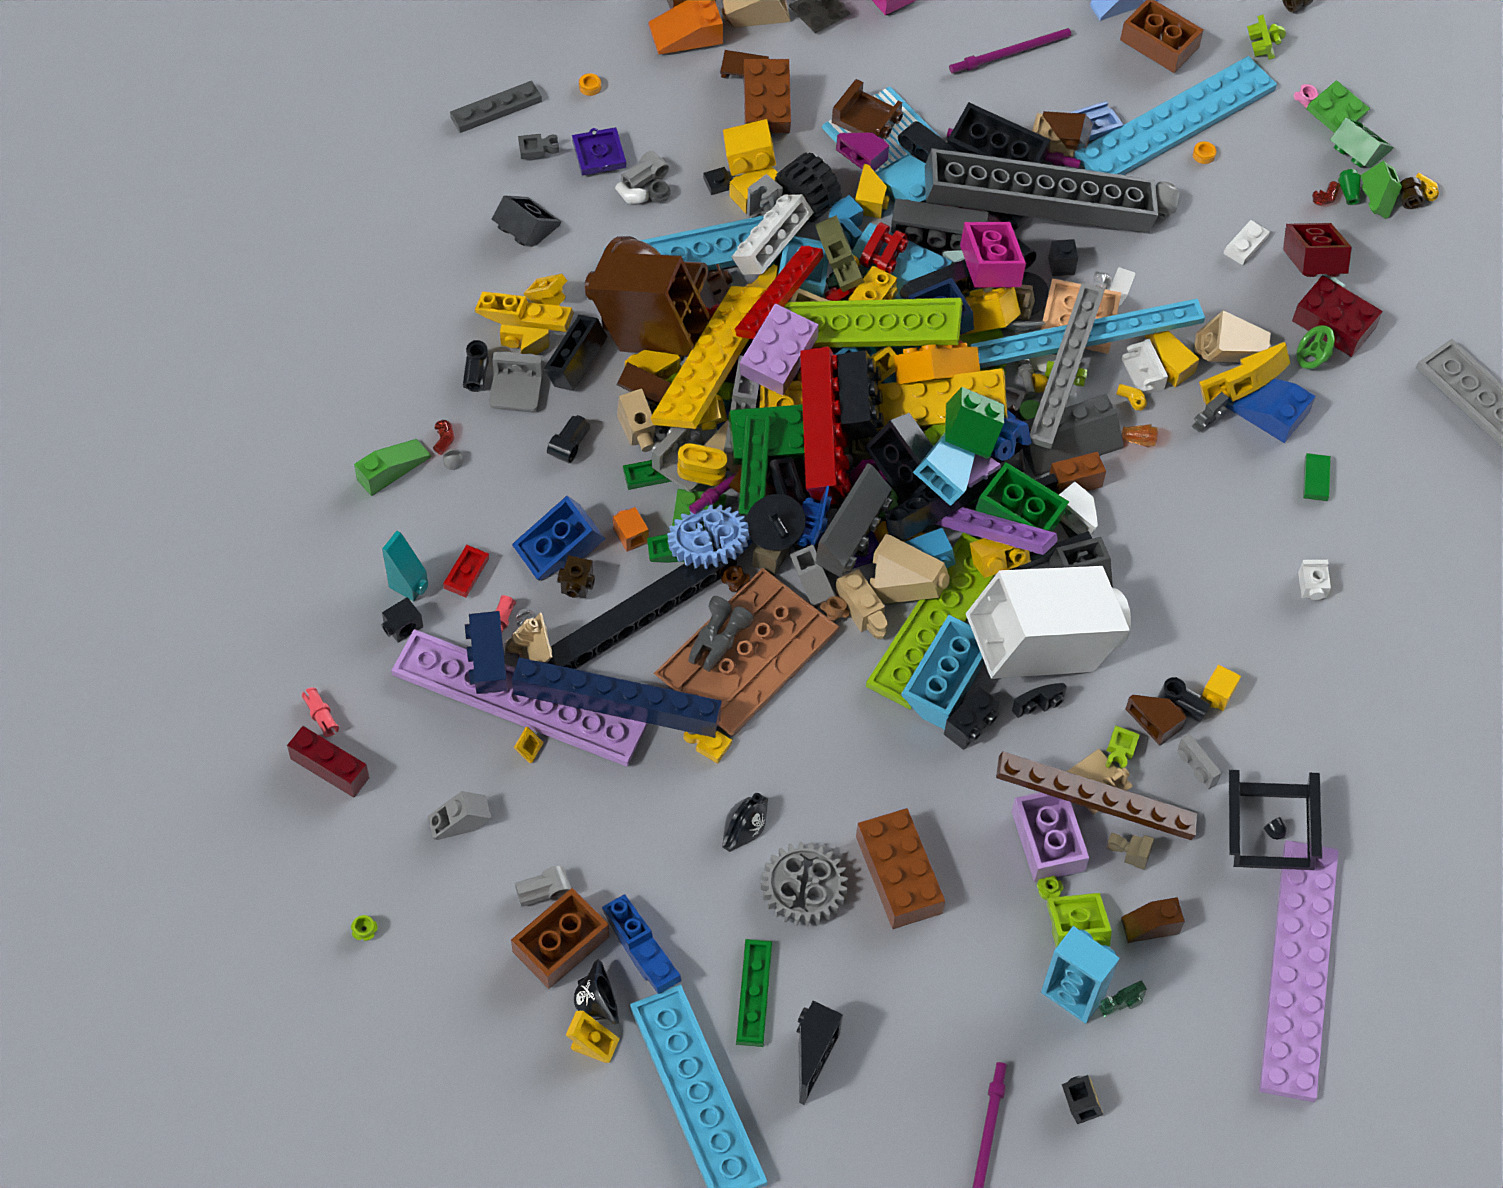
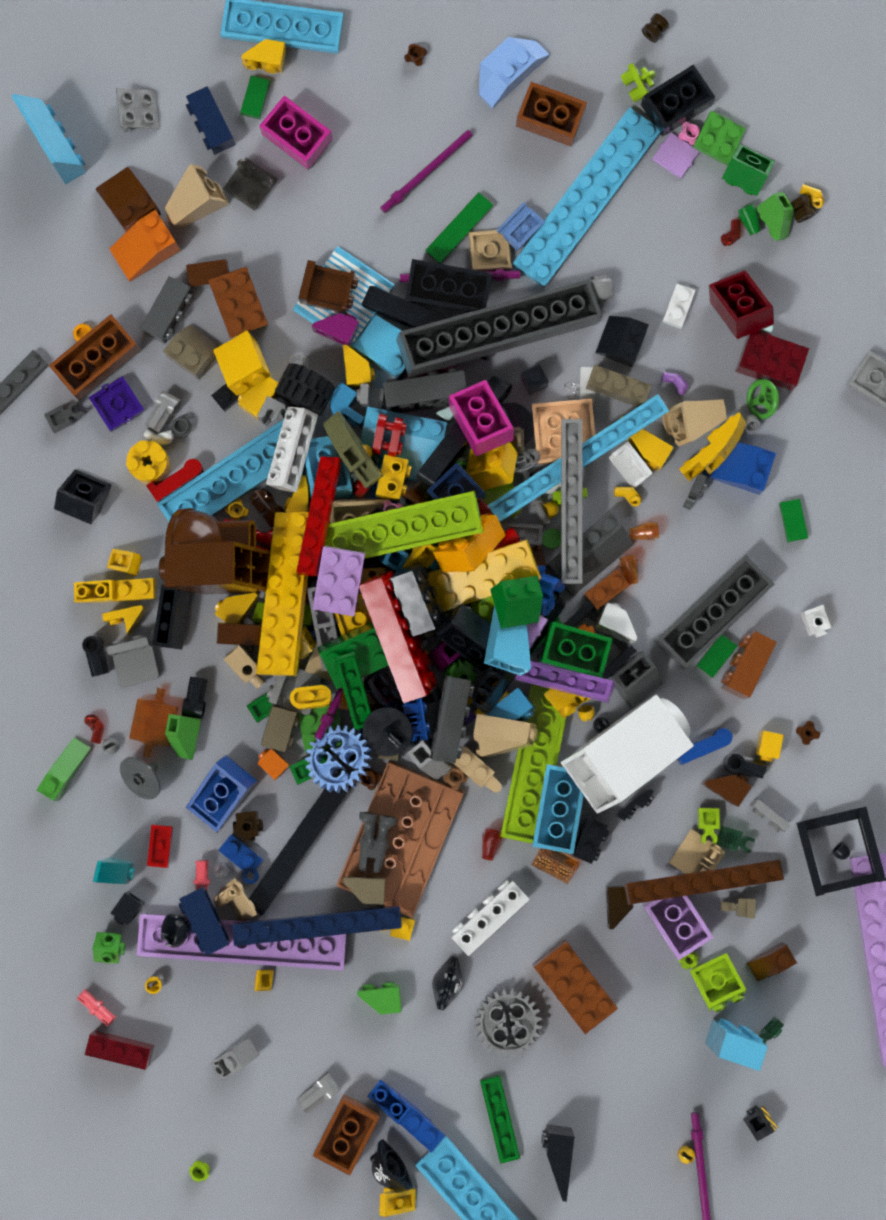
camera: 15 degrees left, 25 degrees up
(362, 650) = (108, 947): none -> bright green brick
(396, 703) = (155, 988): none -> yellow hinge
(449, 649) = (174, 930): none -> black hair
(474, 491) = (140, 777): none -> dark grey shield
(511, 451) = (151, 722): none -> clear orange plate
(539, 466) = (182, 735): none -> bright green slope
(554, 612) = (242, 857): none -> blue hinge
(594, 101) = (94, 357): none -> dark orange brick
(611, 208) = (147, 451): none -> yellow brick
(639, 231) = (191, 469): none -> red leg
(652, 492) = (279, 728): none -> dark tan brick
(661, 808) = (383, 999): none -> bright green slope
(687, 86) = (167, 310): none -> dark grey brick
(689, 677) = (367, 889): none -> dark tan slope
(696, 129) = (191, 351): none -> dark tan slope
(823, 762) = (490, 917): none -> white brick
(852, 686) = (490, 843): none -> clear red cone
(872, 215) = (370, 396): none -> light grey bracket
(921, 736) = (555, 864): none -> clear orange slope
(971, 1114) = (689, 1151): none -> yellow hinge
(984, 797) = (616, 905): none -> dark brown slope
(1028, 106) = (459, 228): none -> green tile
(1070, 128) = (502, 249): reddish brown slope -> none
(1112, 461) = (629, 568): none -> clear orange cone
(1140, 666) = (719, 739): none -> blue leg
(1144, 773) = (731, 839): none -> clear green plate
(1150, 286) = (618, 386): none -> dark tan brick
(1175, 252) = (622, 339): none -> black slope
(1185, 582) = (716, 656): none -> green tile
(1196, 531) = (714, 612): none -> dark grey brick
(1204, 152) = (619, 223): light orange tile -> none
(1219, 304) = (678, 381): none -> medium lavender arm
(1219, 592) = (747, 664): none -> dark orange brick
(1268, 697) = (801, 731): none -> reddish brown plate
(1285, 112) = (675, 155): none -> lavender piece
(1291, 372) = (751, 427): none -> light grey hinge
(1302, 60) = (677, 100): none -> black brick

